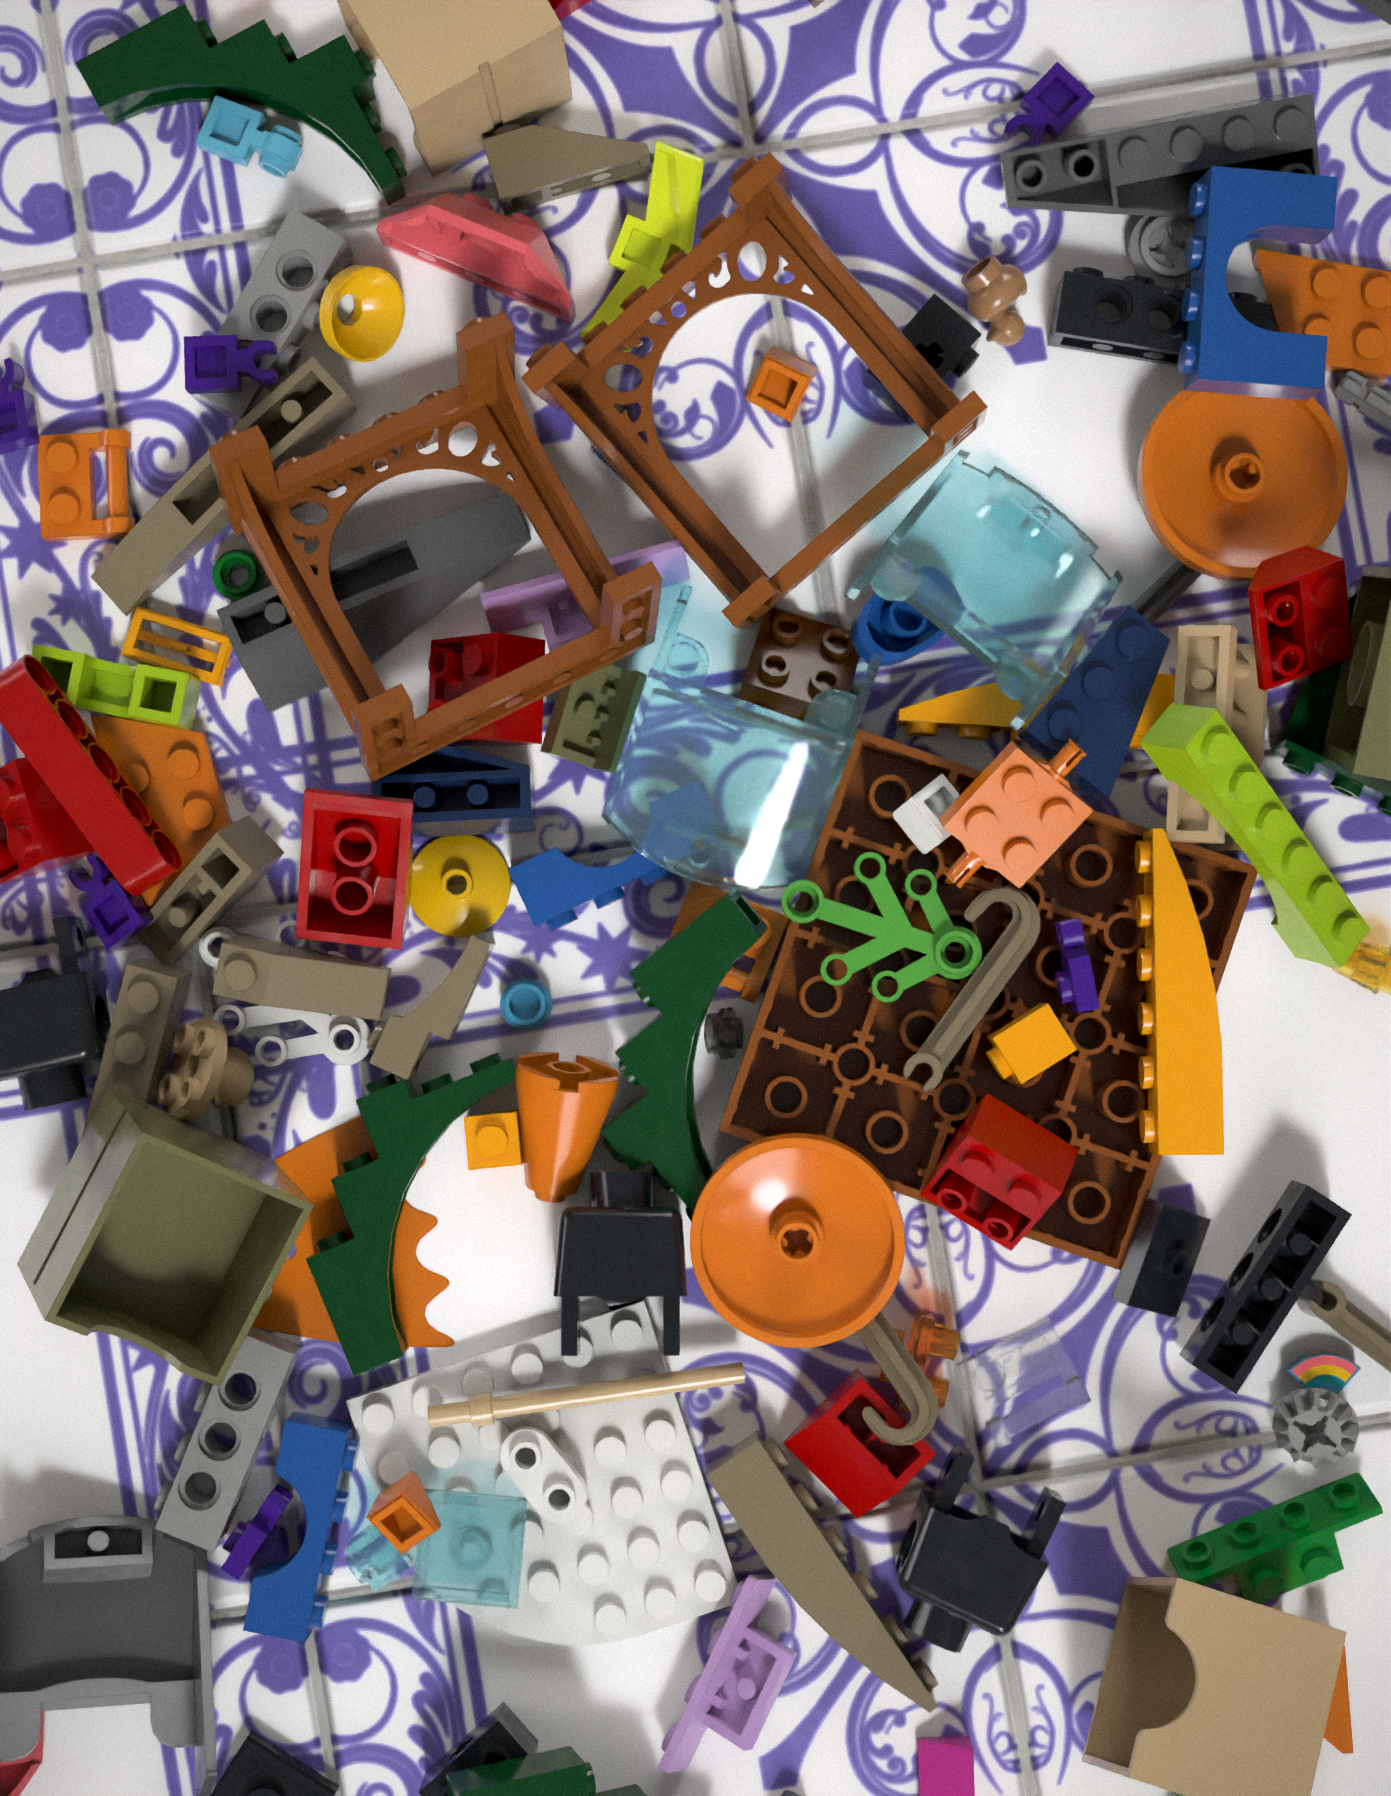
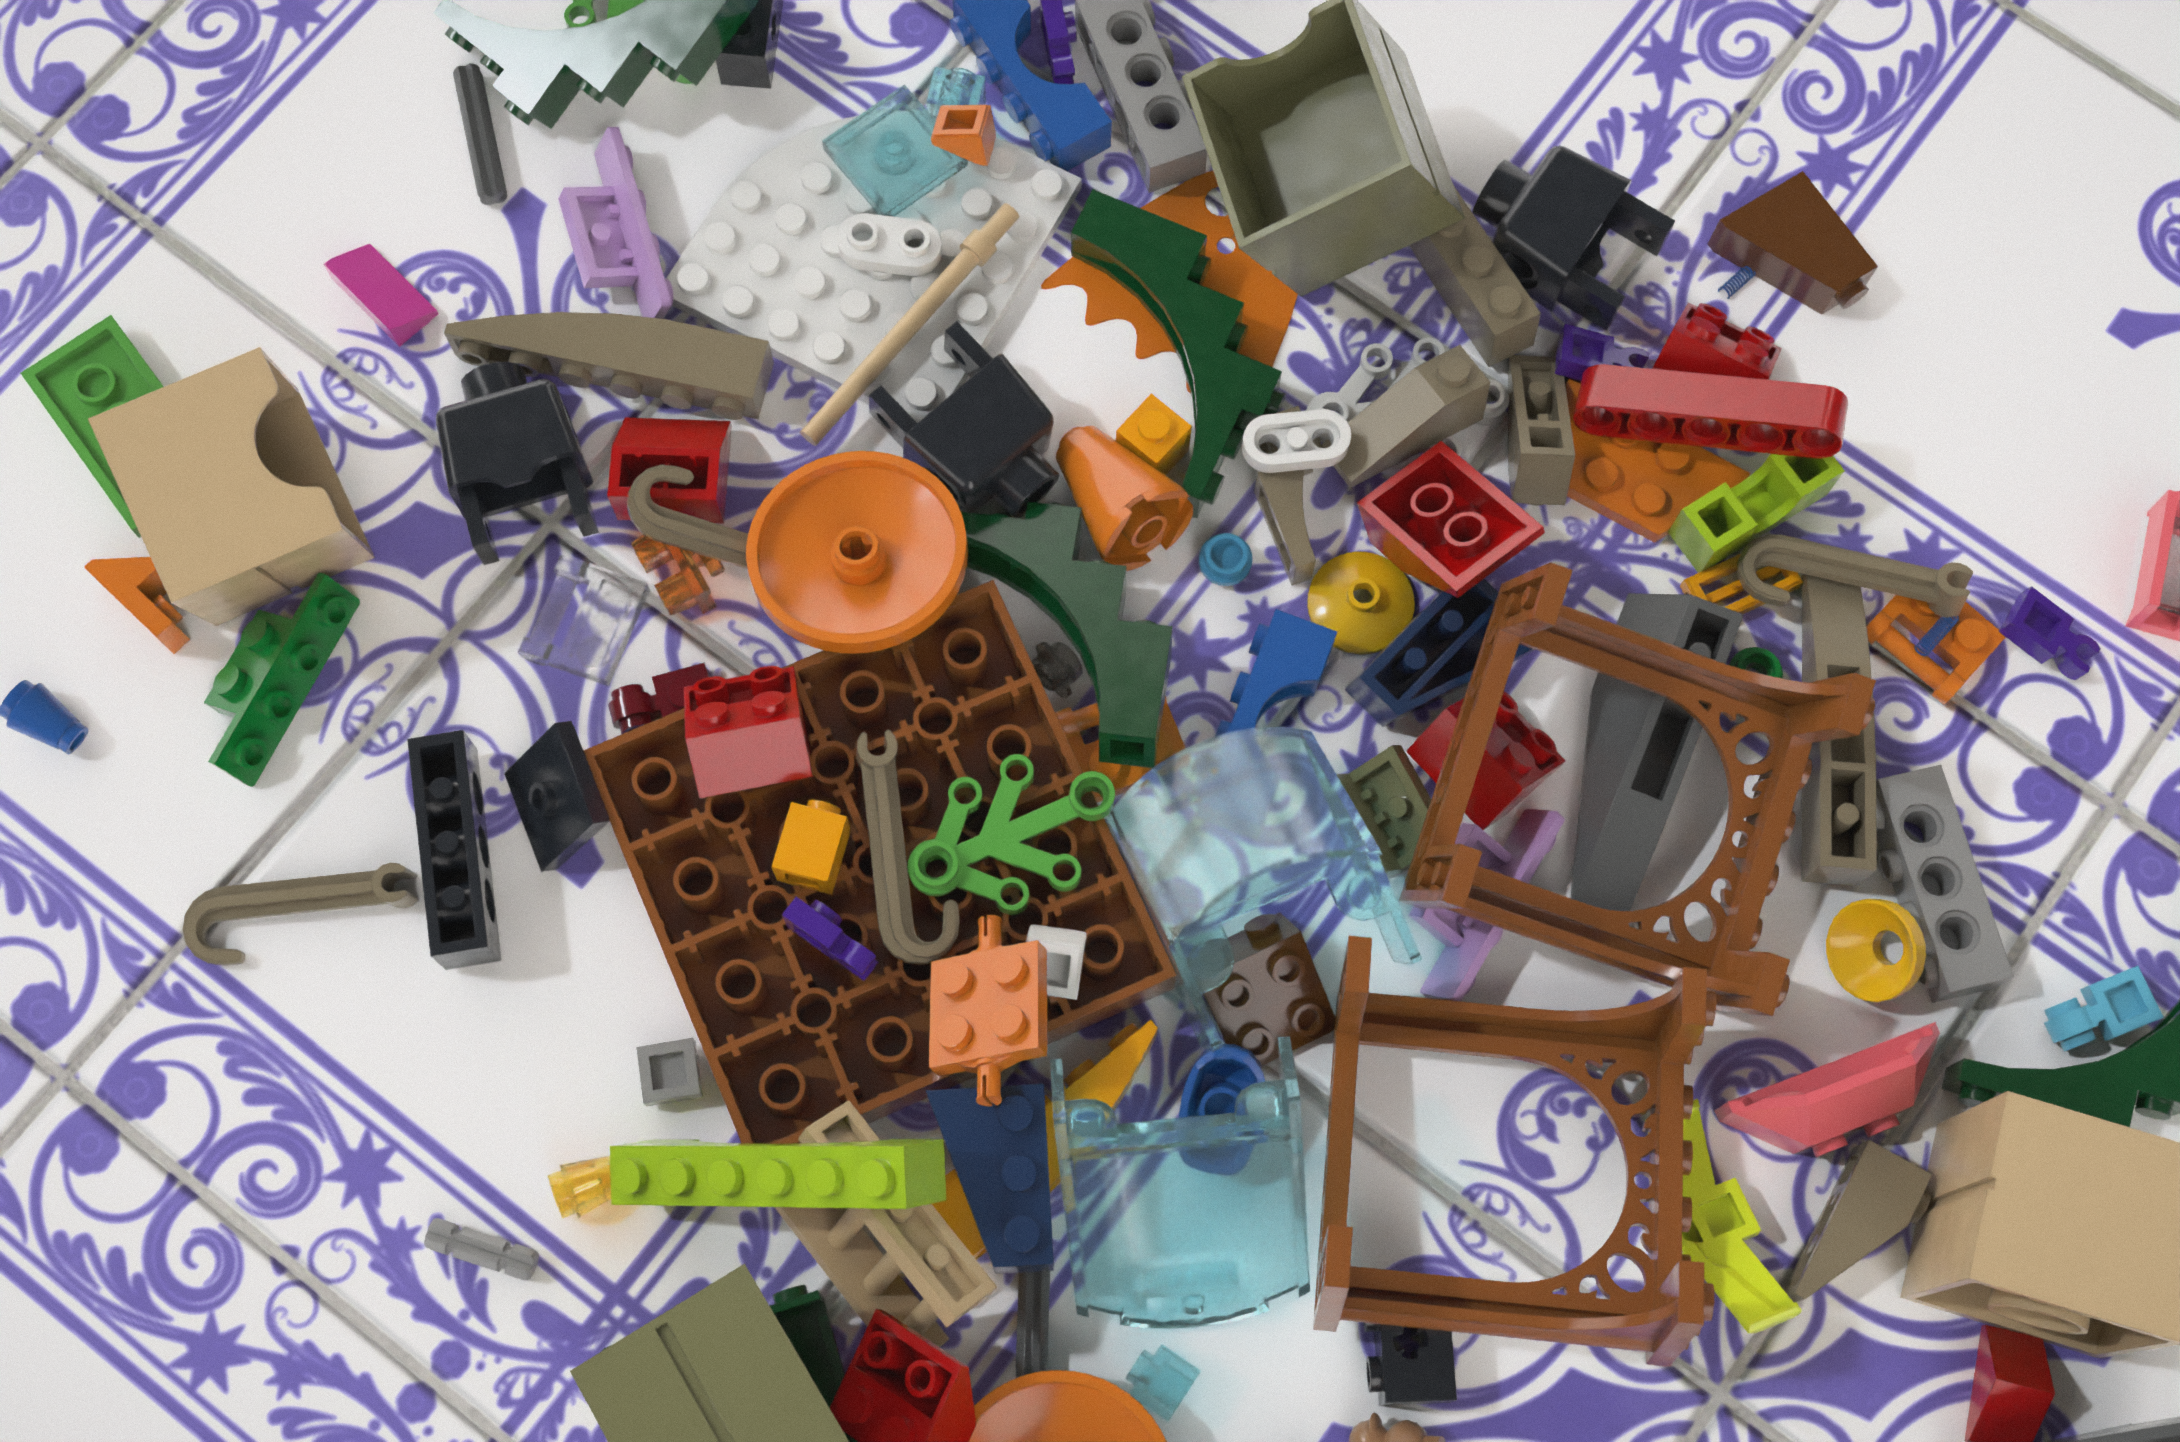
camera: 130 degrees right, 15 degrees down
(72, 482) = (1934, 633): none -> blue leg
(100, 579) = (1941, 588): none -> dark tan piece
(204, 1071) = (1407, 301): tan plate -> none
(218, 363) = (1934, 798): dark purple plate -> none
(402, 1033) = (1294, 438): none -> white plate
(781, 383) = (1504, 1220): orange slope -> none
(1007, 1267) = (635, 708): none -> dark red plate
(1108, 485) = (1161, 1381): none -> clear light blue plate
(1179, 1012) = (712, 974): light orange slope -> none
(1248, 991) = (669, 1072): none -> light grey plate
(1308, 1407) = (339, 790): light grey gear -> none
(1323, 1371) = (346, 833): tile -> none

